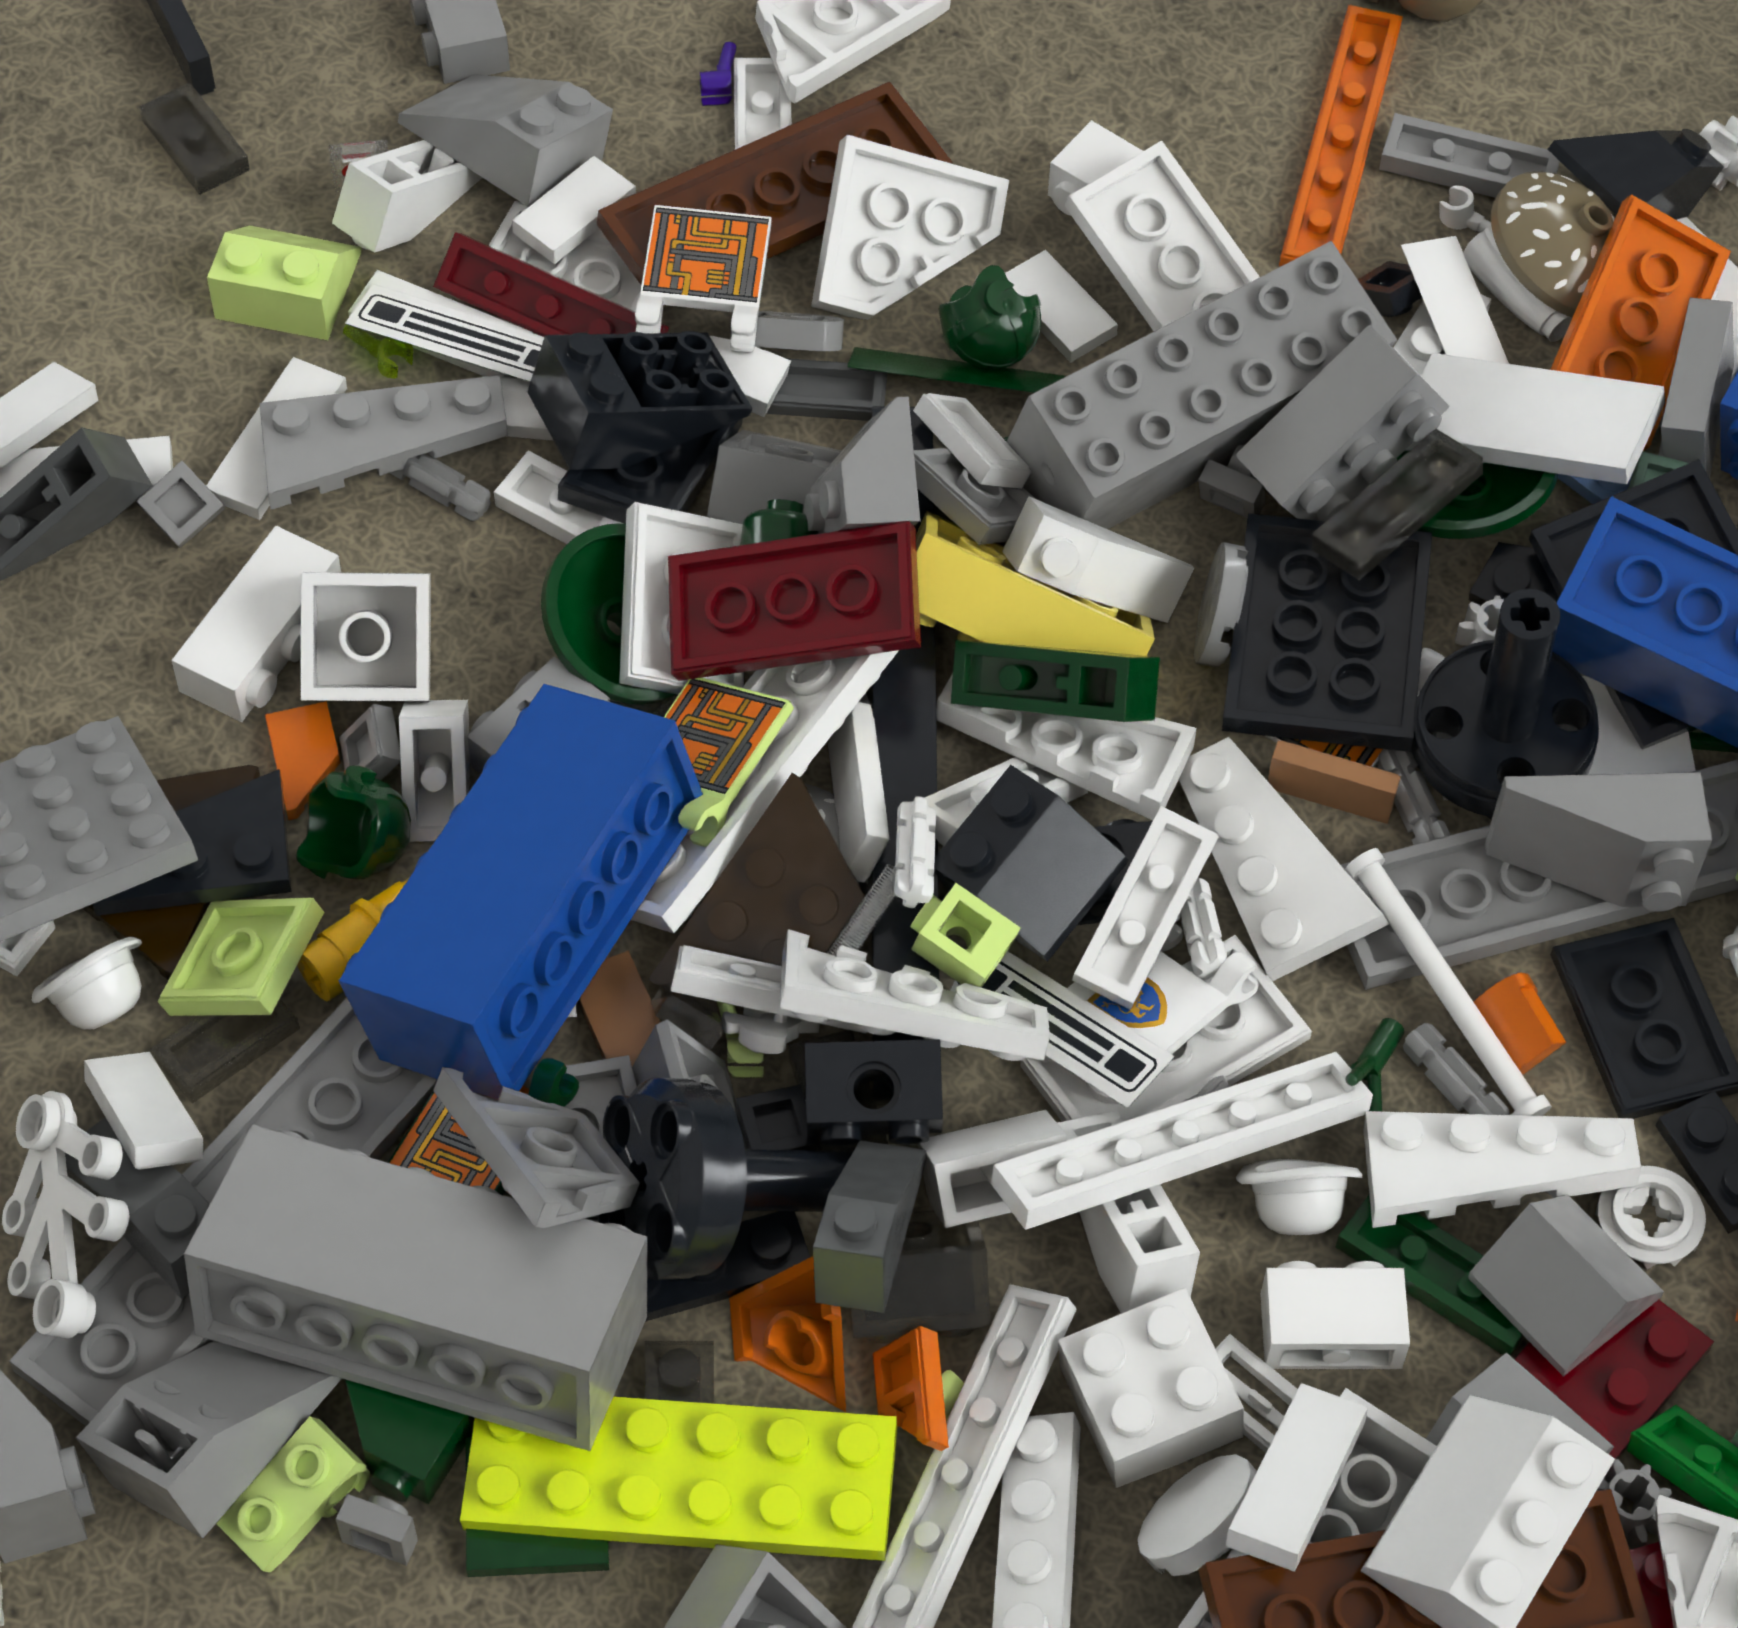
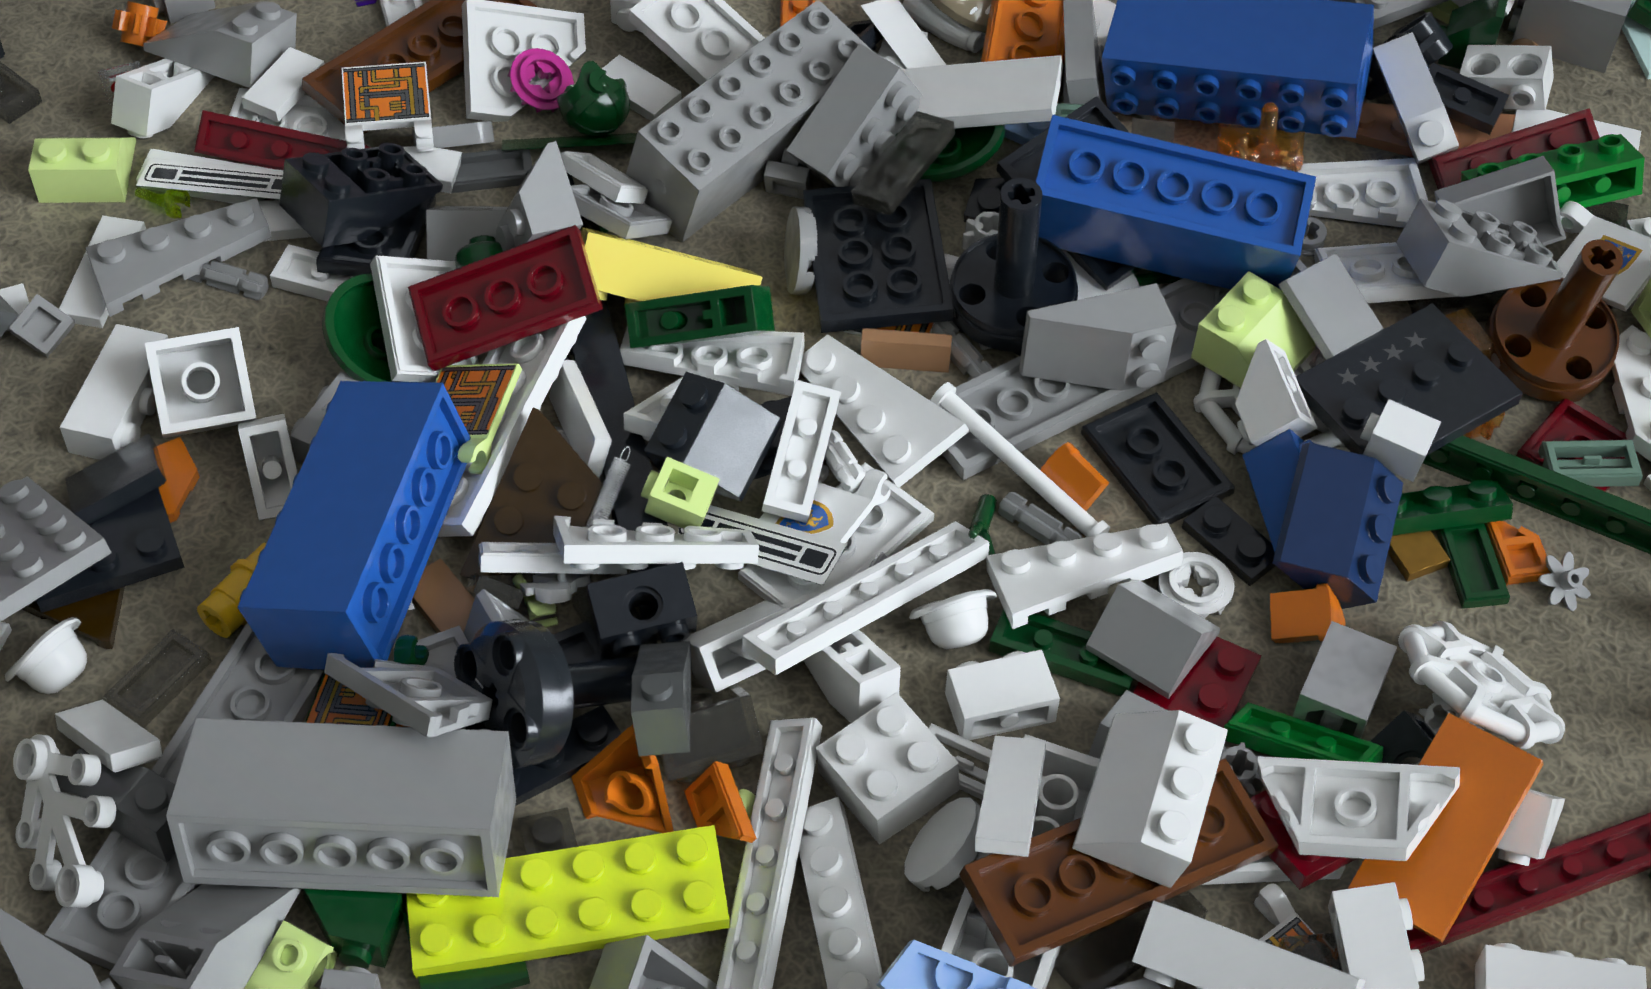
camera: 15 degrees left, 5 degrees down
(228, 751) = (116, 480): none -> black tile
(241, 957) = (157, 618): yellowish green tile -> none
(354, 825) = (220, 512): dark green cap -> none
(372, 741) = (220, 460): light grey tile -> none
(399, 80) = (138, 23): none -> orange gear
(915, 852) = (632, 443): white axle -> none
(937, 250) = (545, 65): none -> dark pink gear
(1095, 562) = (707, 237): white slope -> none

